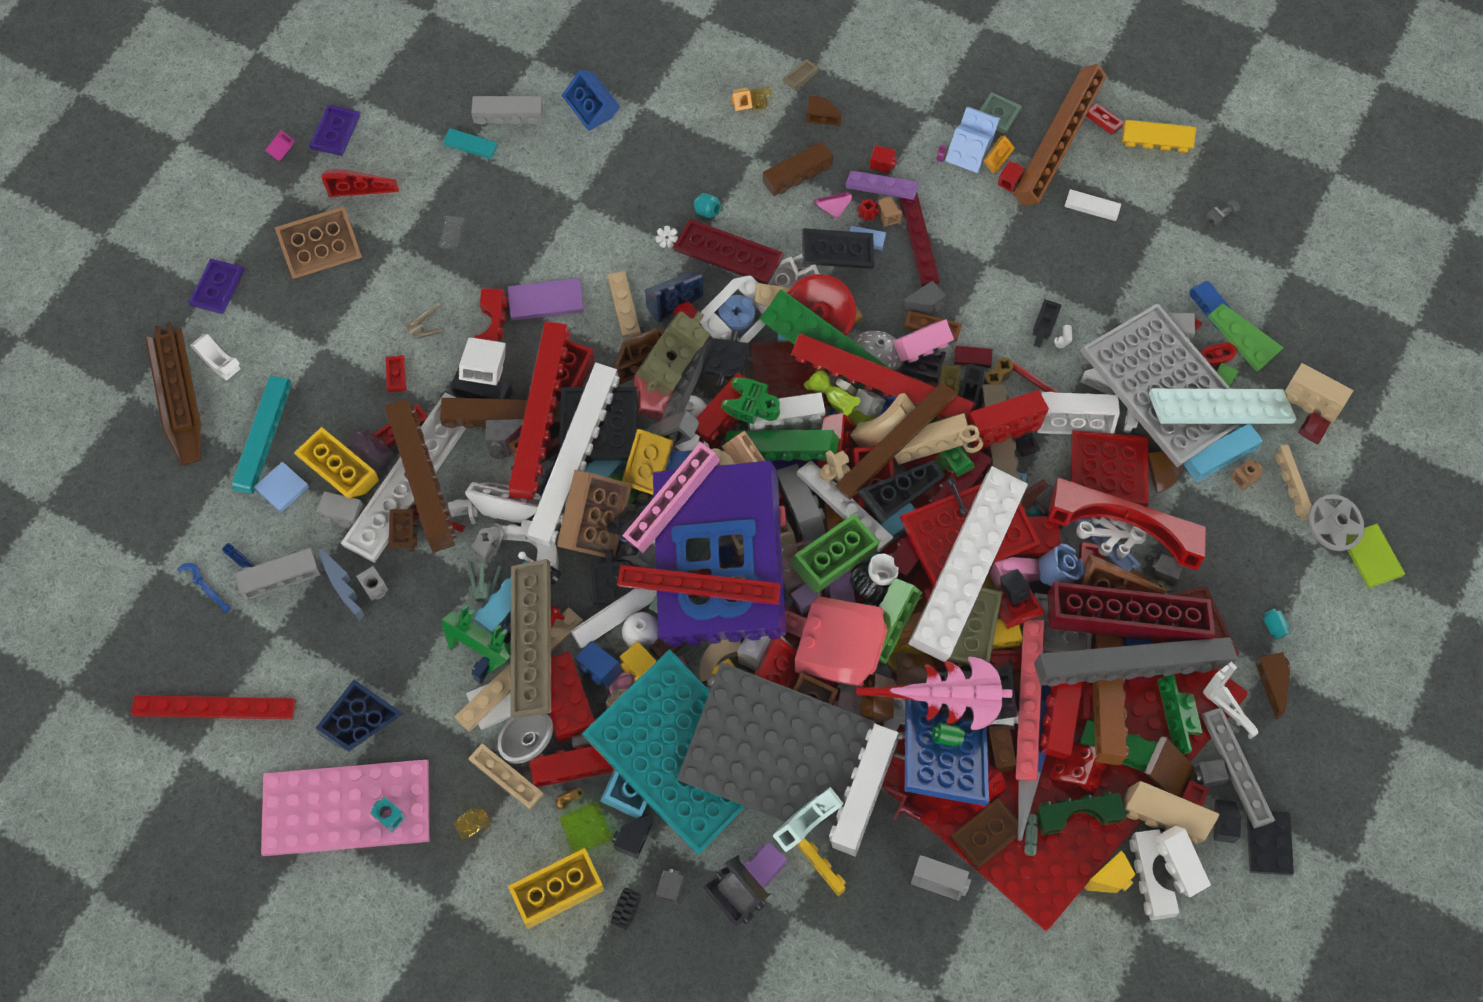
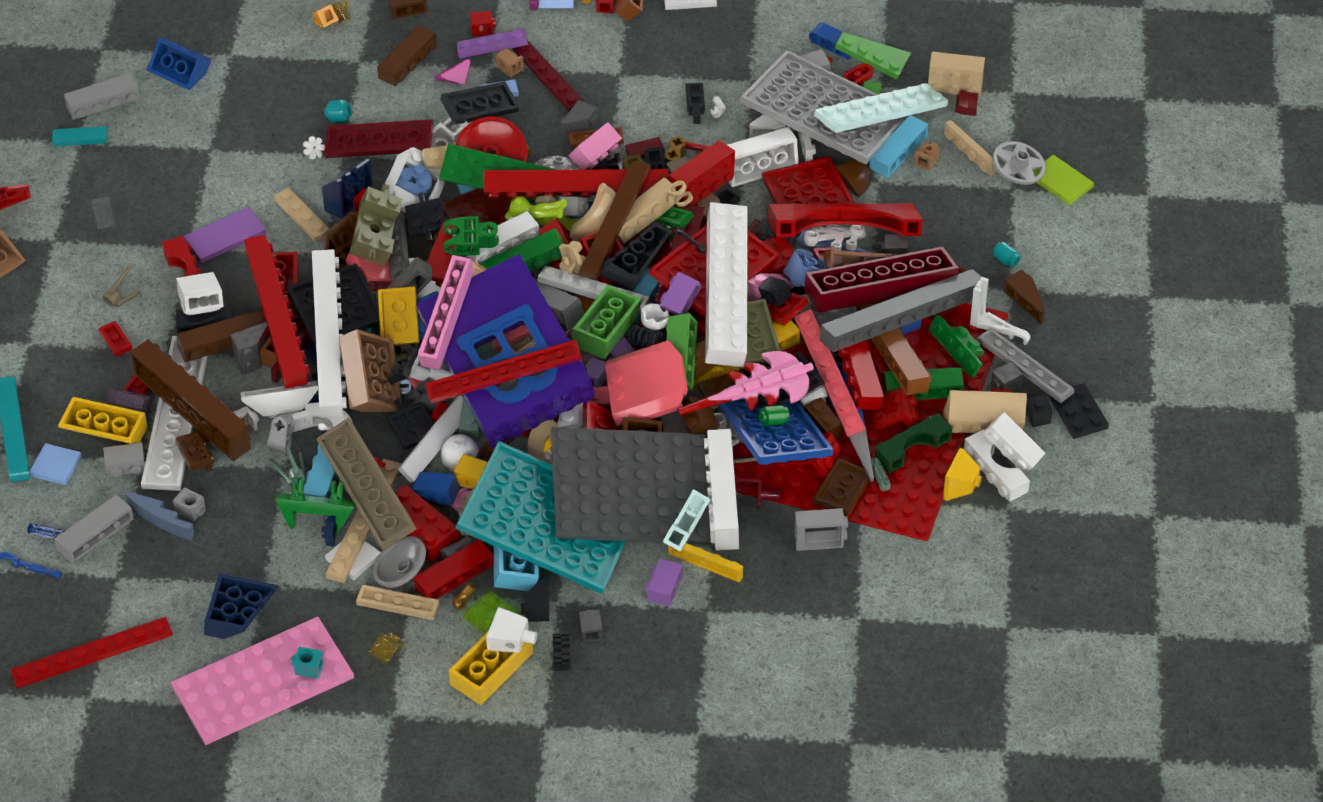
camera: 25 degrees left, 15 degrees down
(580, 872) = (509, 632): none -> white torso
(737, 892) = (652, 602): black window -> none
(868, 210) = (489, 67): red gear -> none
(916, 558) = (680, 294): none -> medium lavender brick
(1169, 768) = (967, 377): reddish brown tile -> none

